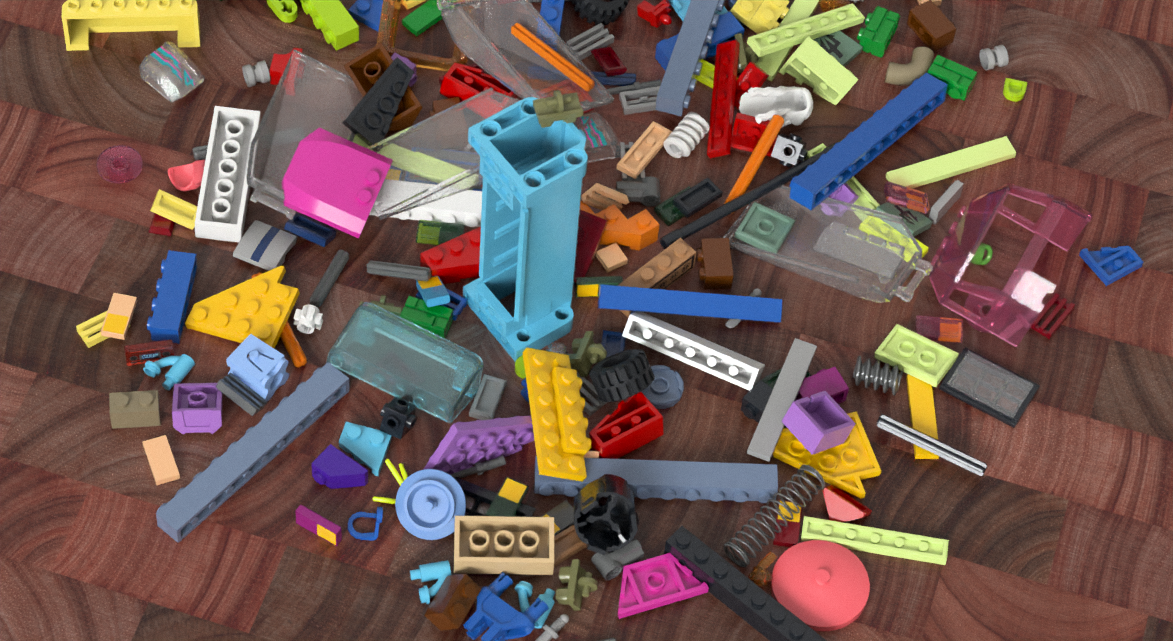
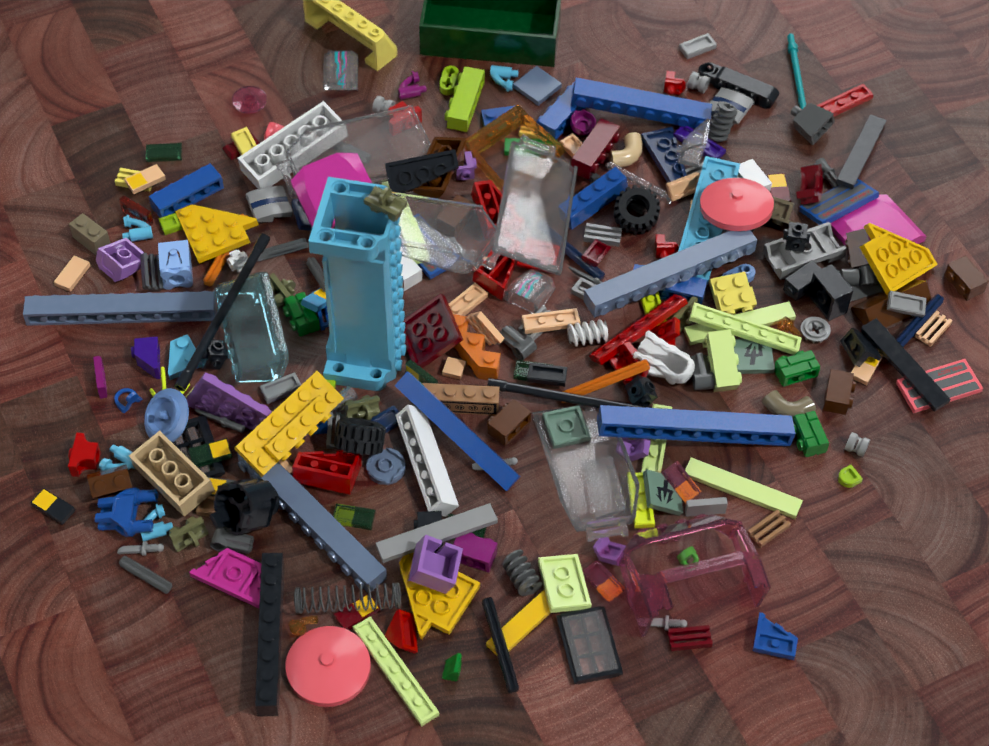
camera: 50 degrees right, 0 degrees up
(97, 278) = (163, 152): none -> clear green tile
(193, 339) = (170, 224): none -> lime tile
(262, 39) = (406, 91): none -> magenta plant
(394, 603) = (83, 455): none -> red brick
(410, 448) = (186, 375): none -> black piece
(552, 57) = (553, 203): orange axle -> none
(688, 448) = (354, 516): none -> clear green tile
(822, 98) = (702, 377): none -> dark grey piece
(916, 496) = (452, 667): none -> green slope
(923, 300) = (608, 551): none -> medium lavender bracket
(1007, 166) = (780, 519): none -> medium nougat tile

